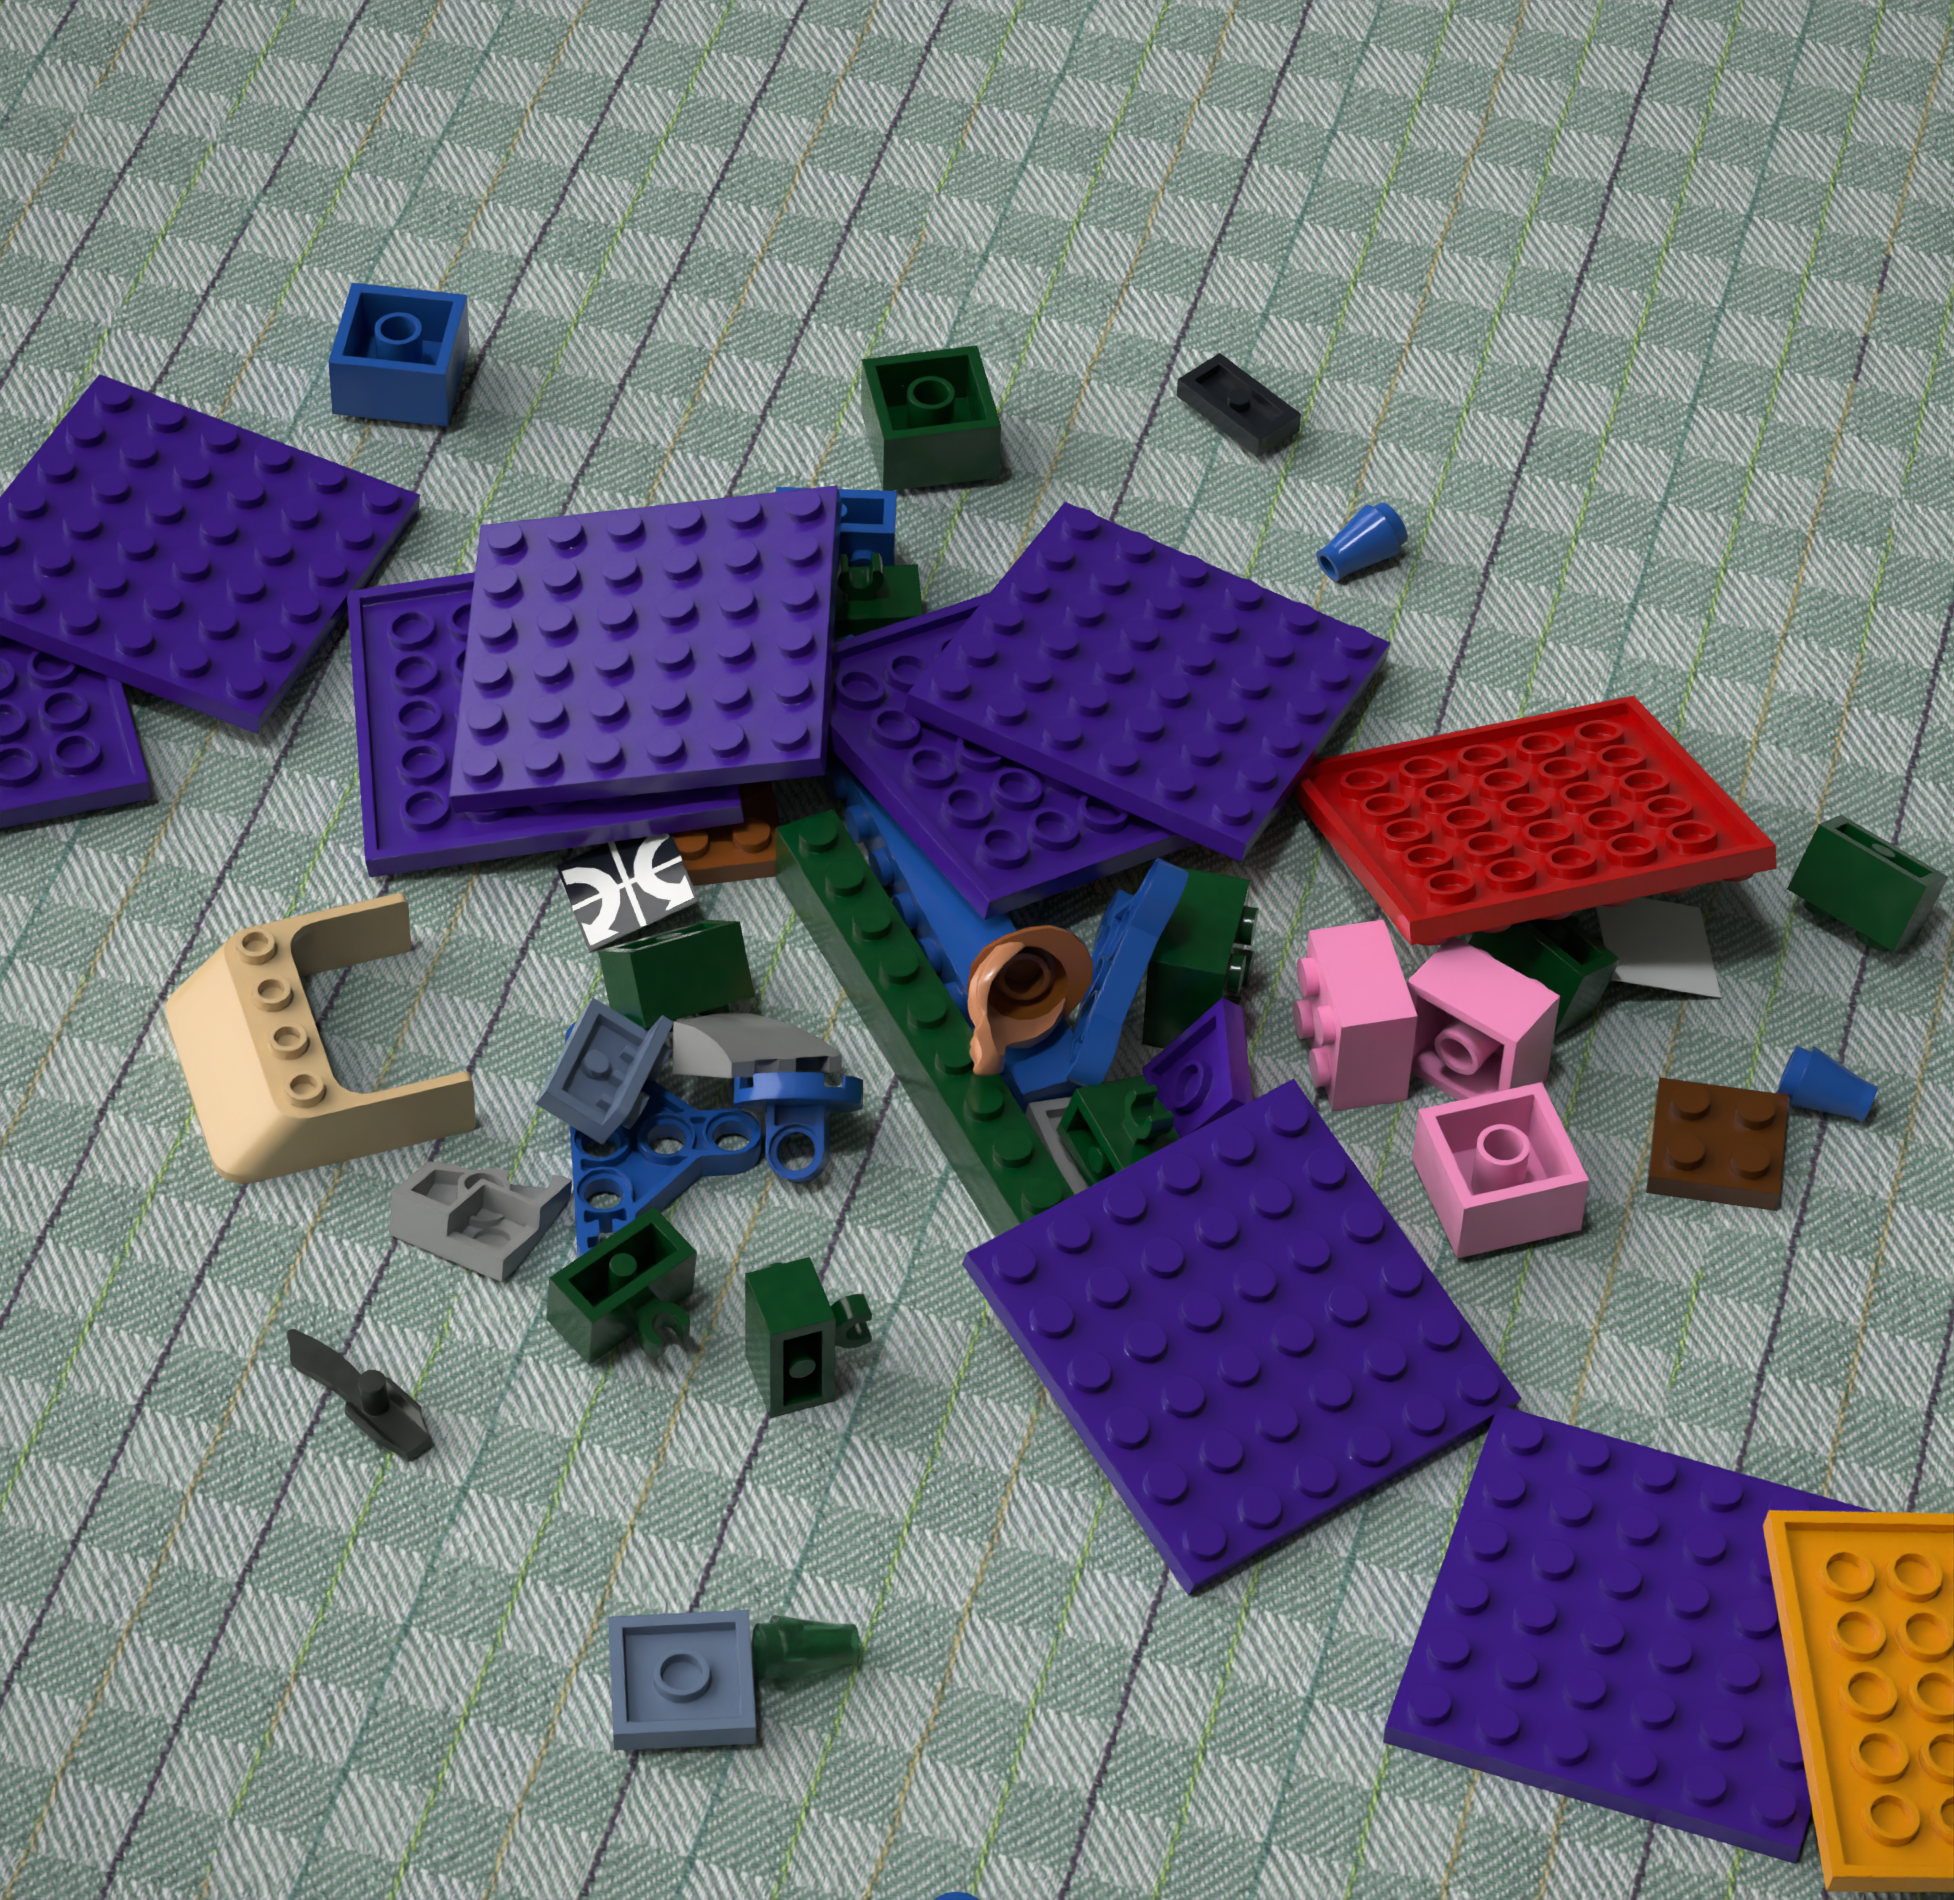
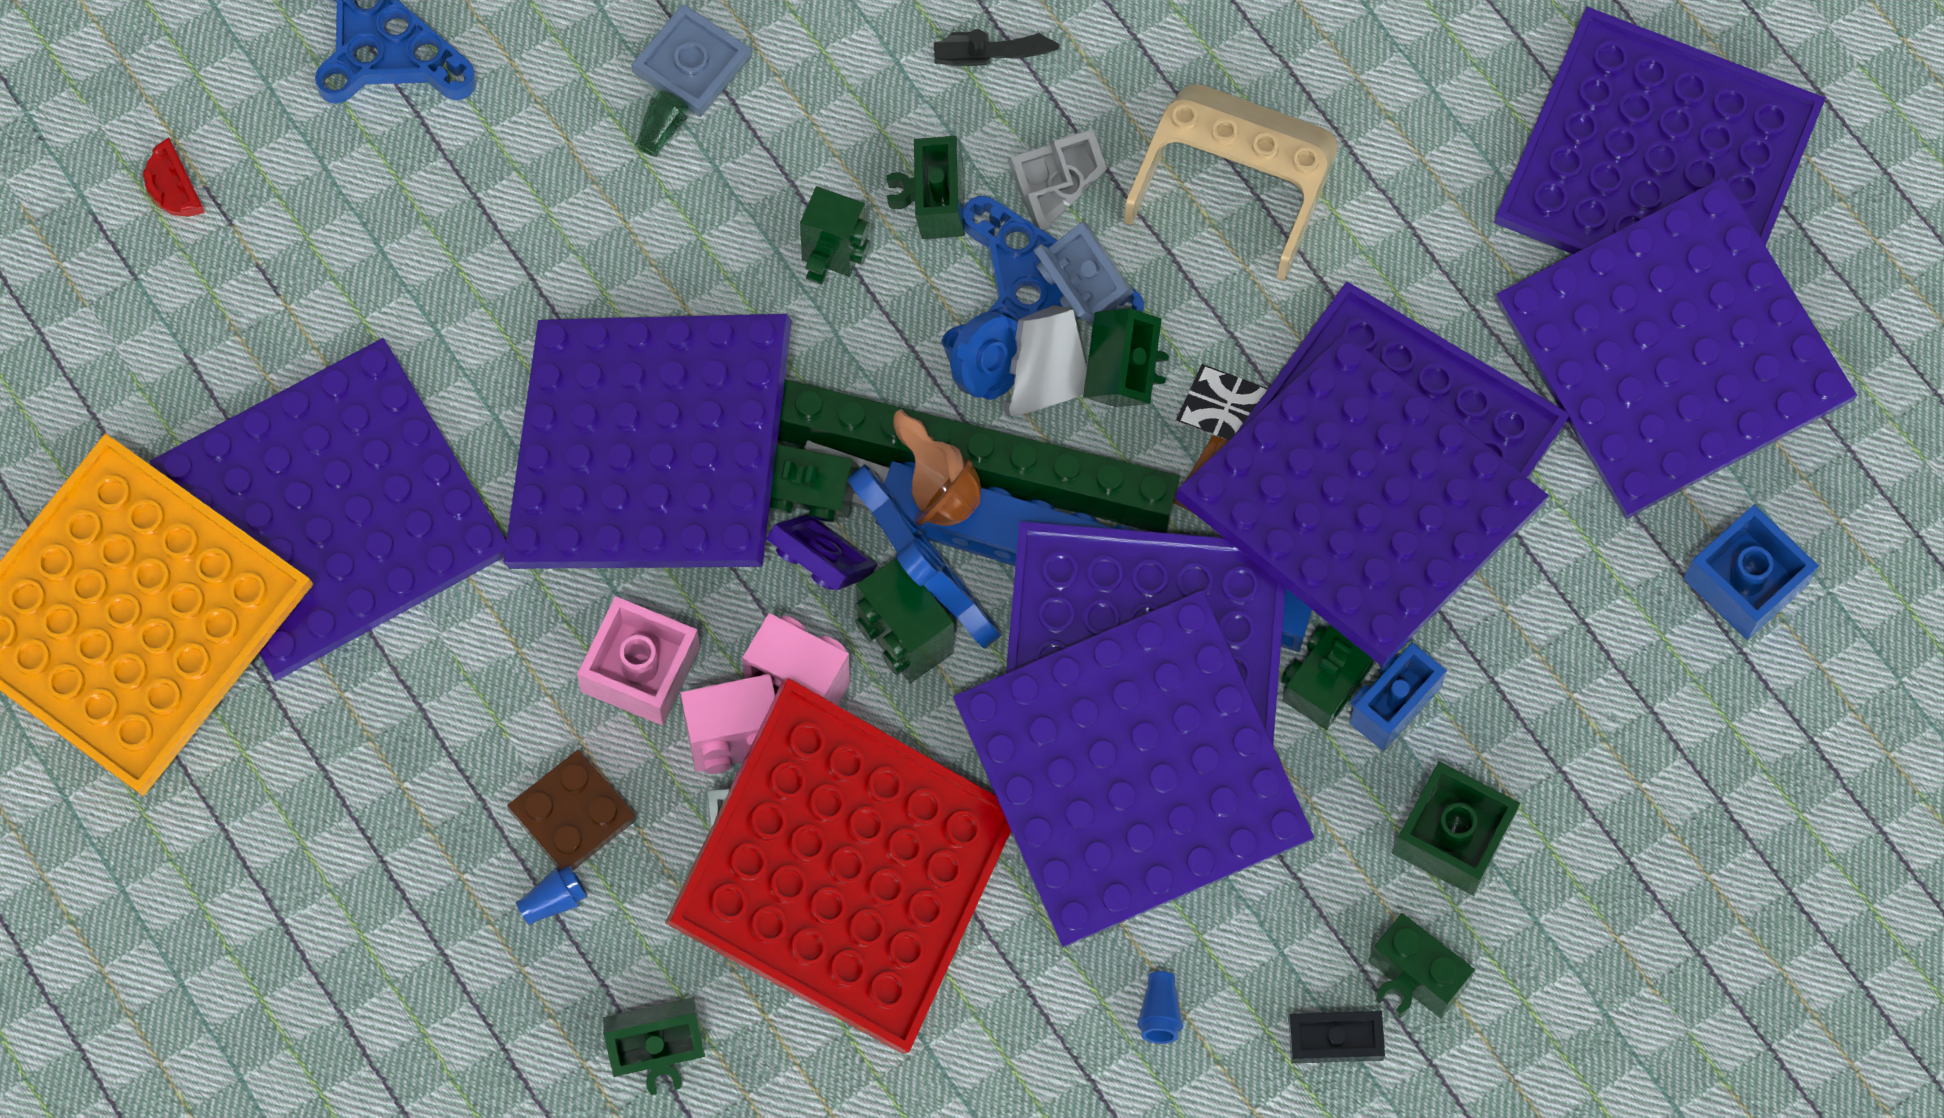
camera: 130 degrees right, 20 degrees up
(1105, 377) = (1419, 968): none -> dark green brick

